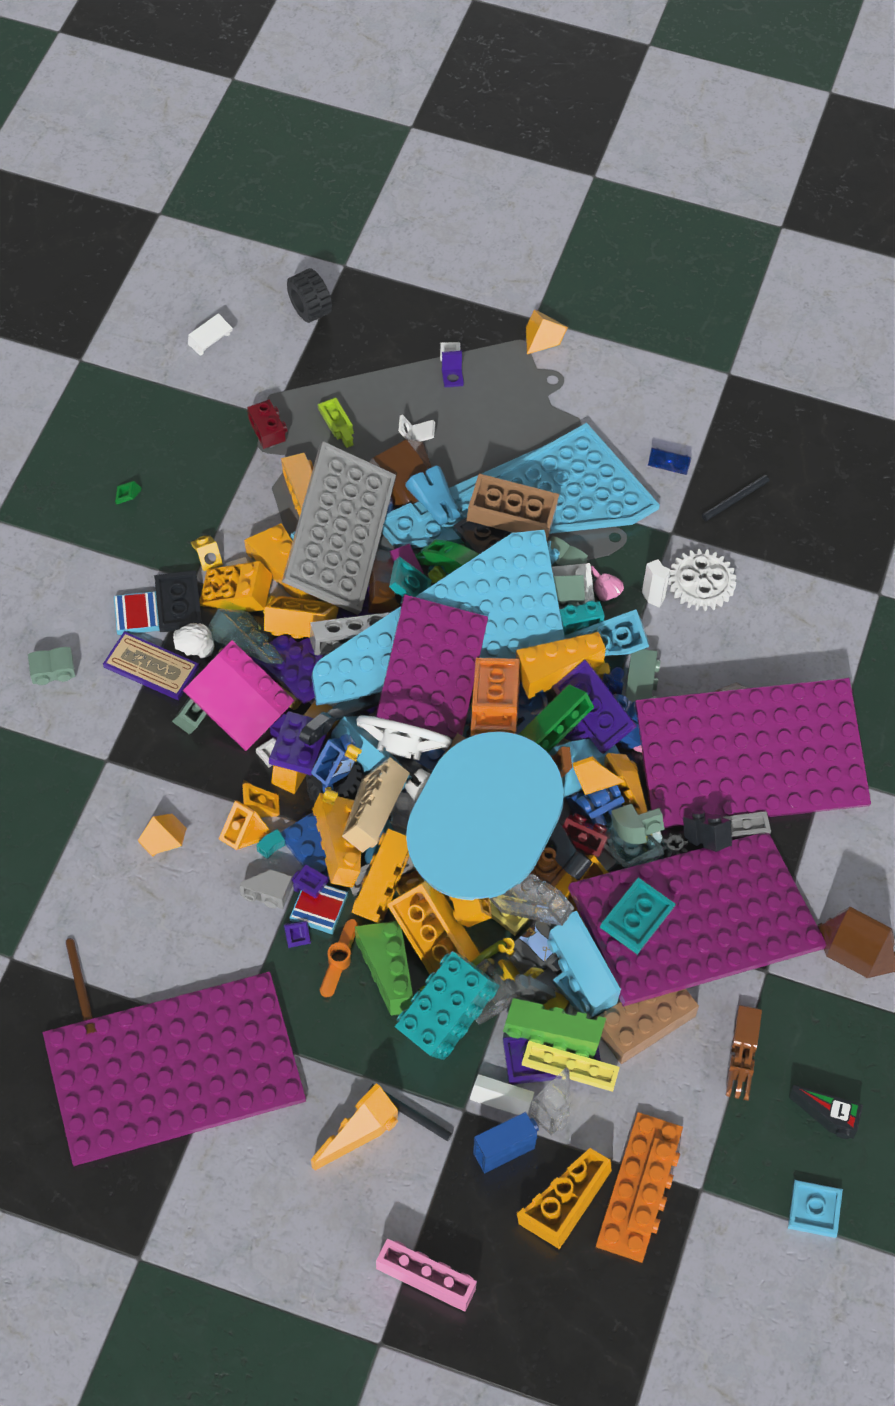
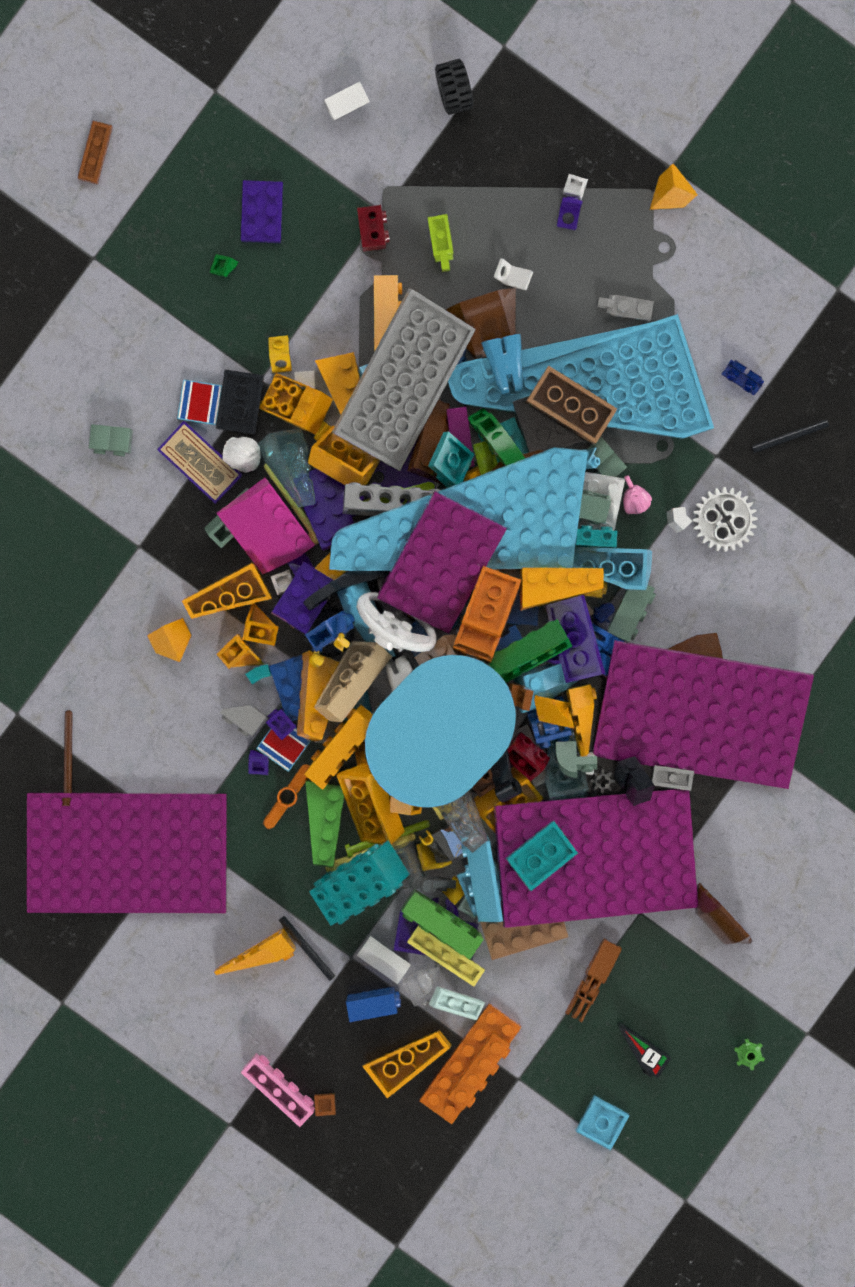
camera: 20 degrees right, 30 degrees up
(153, 441) = (262, 211): none -> dark purple plate
(216, 770) = (232, 591): none -> light orange wedge
(487, 1281) = (325, 1104): none -> dark orange plate
(535, 432) = (627, 307): none -> light grey hinge
(600, 1114) = (456, 1003): none -> light aqua tile

